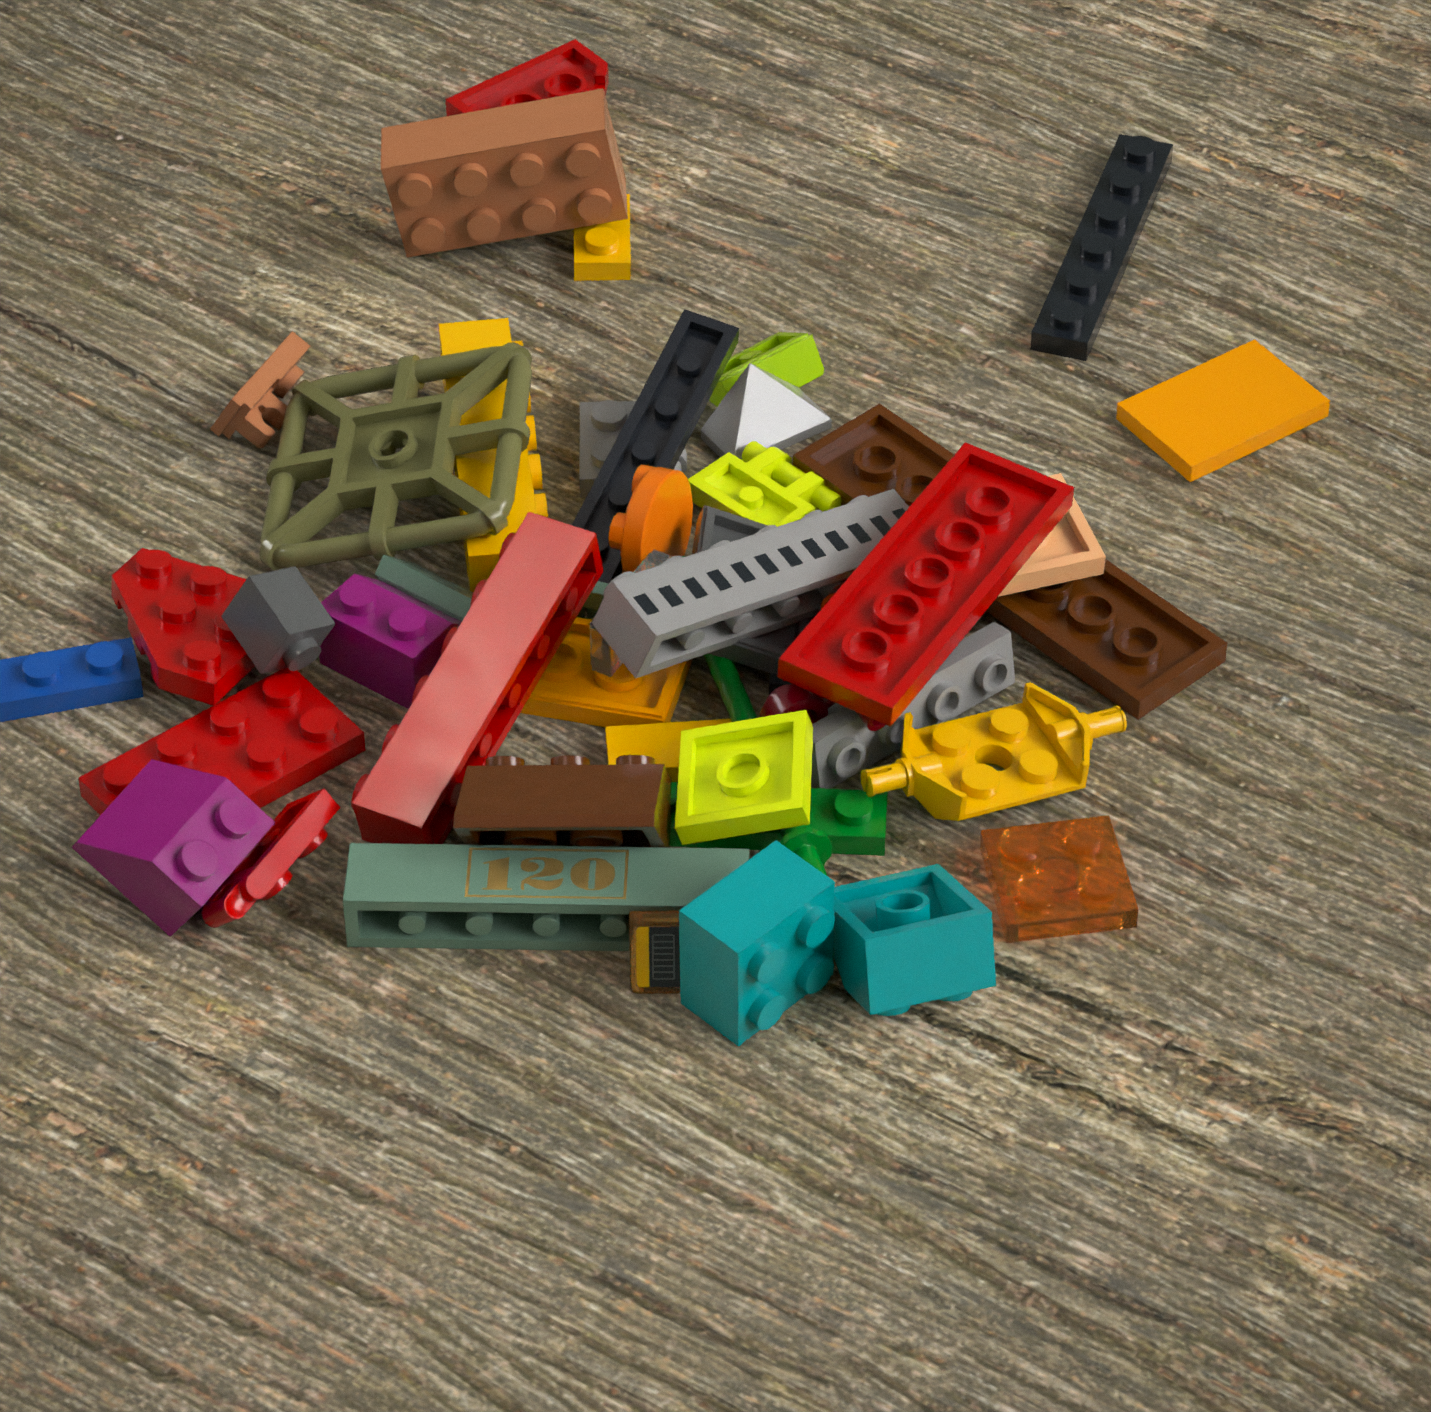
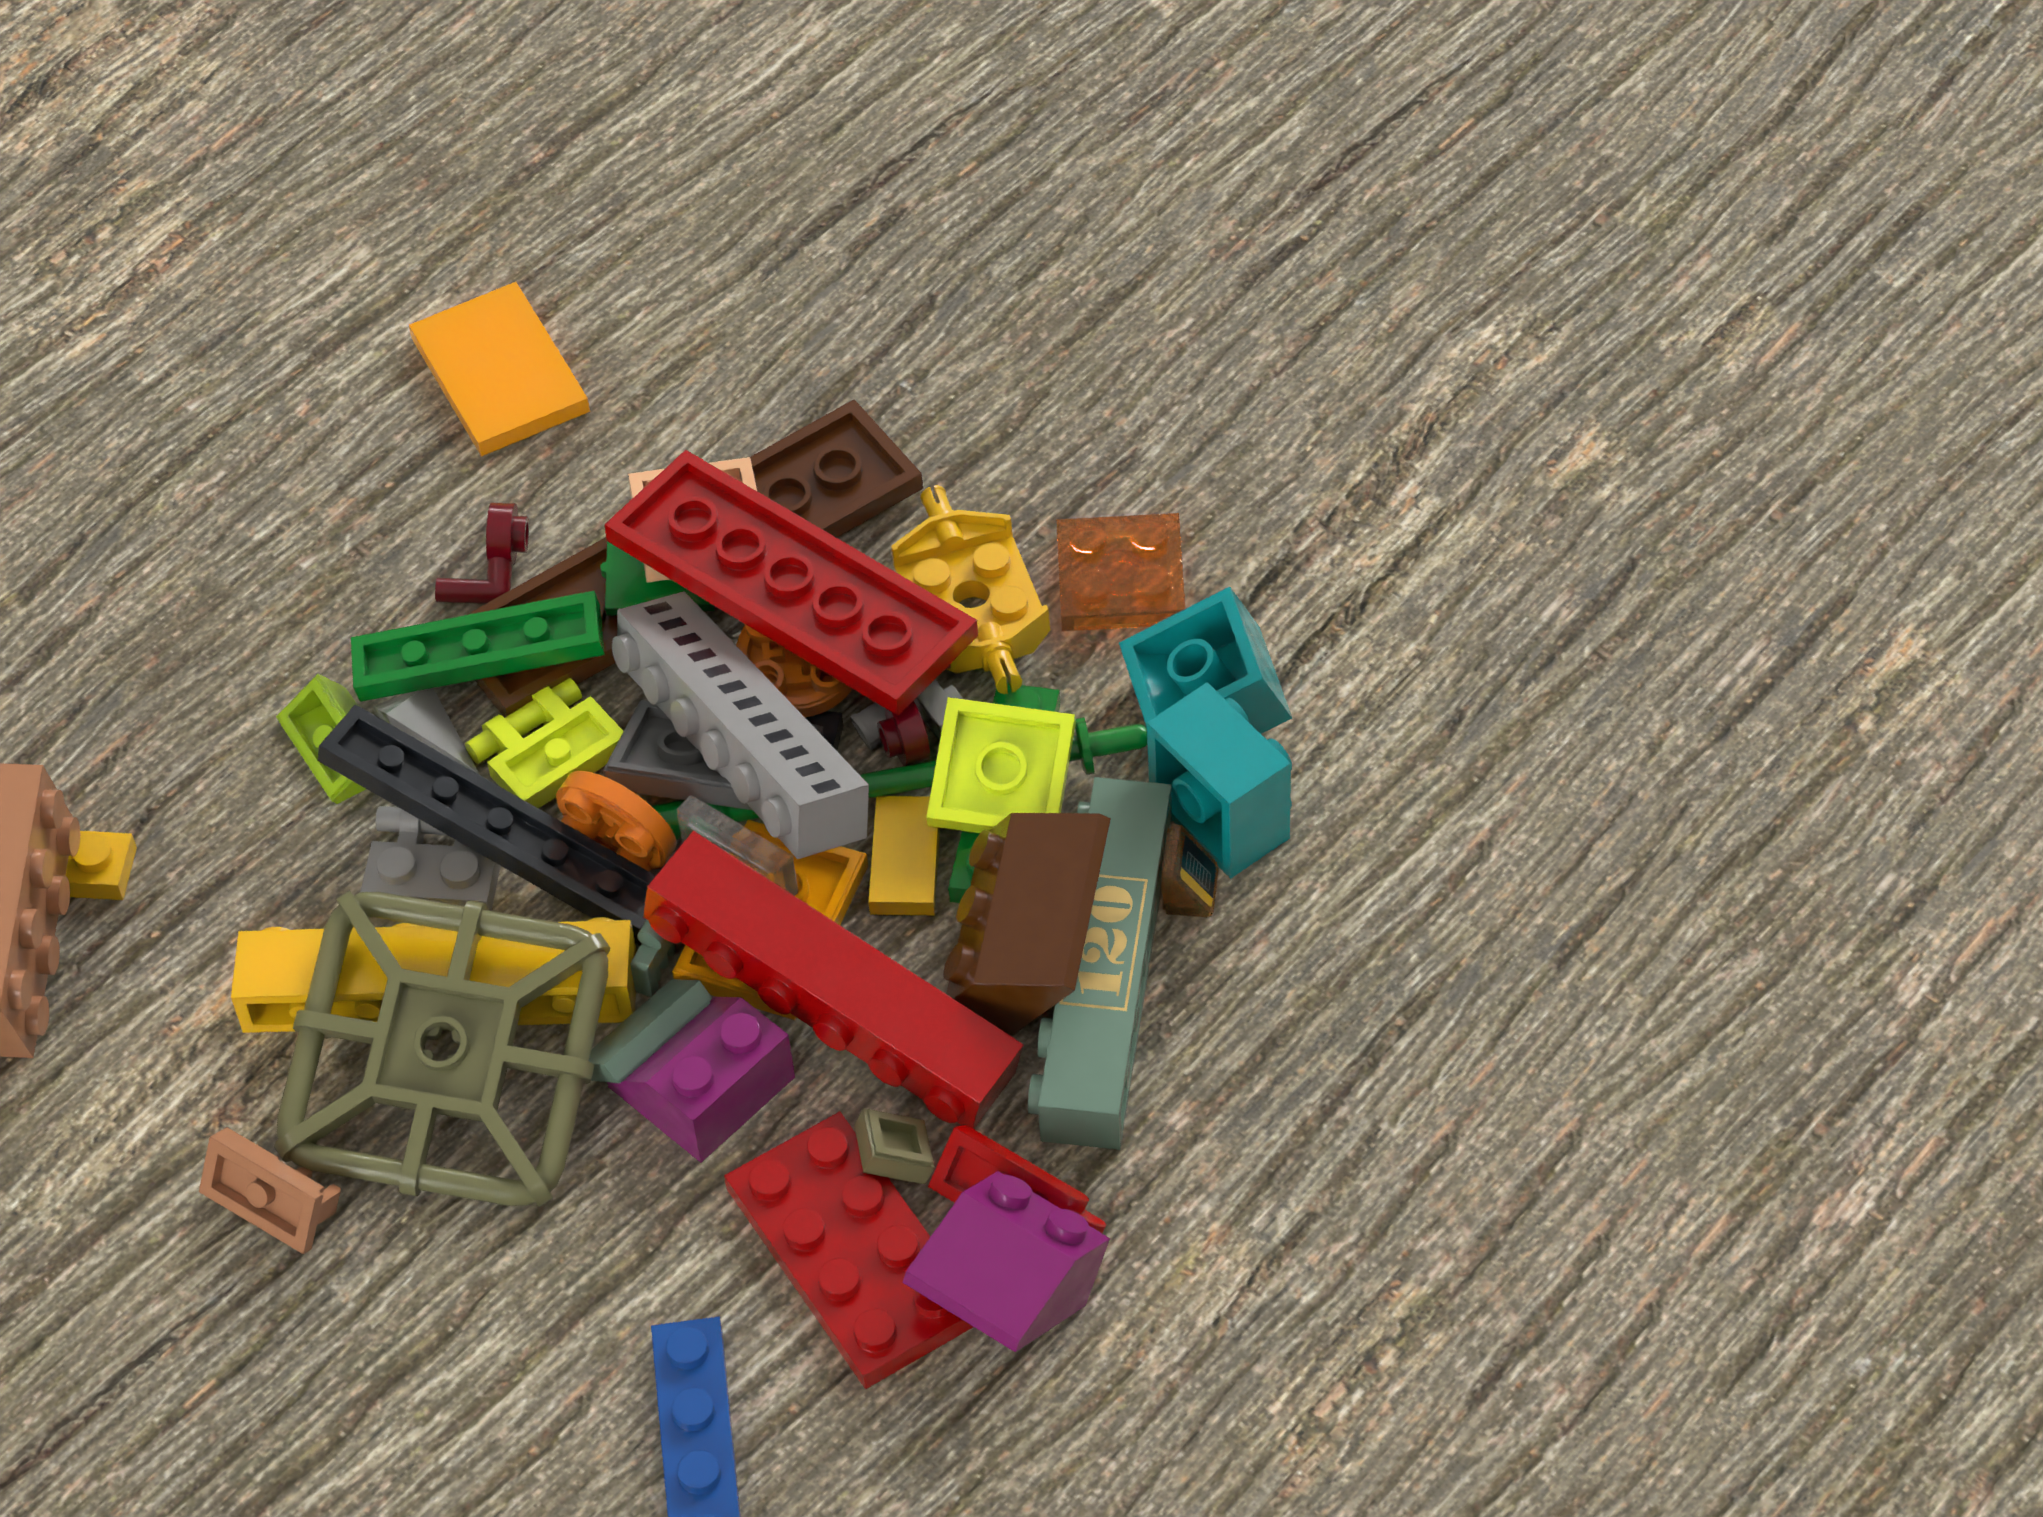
camera: 80 degrees left, 10 degrees up
(179, 625) = (641, 1257): red plate -> none
(278, 620) = (704, 1155): dark grey brick -> none
(322, 763) = (894, 1146): none -> olive tile
(851, 420) = (477, 646): none -> green plate
(999, 428) = (504, 538): none -> dark red plate
(1101, 247) = (213, 430): black plate -> none

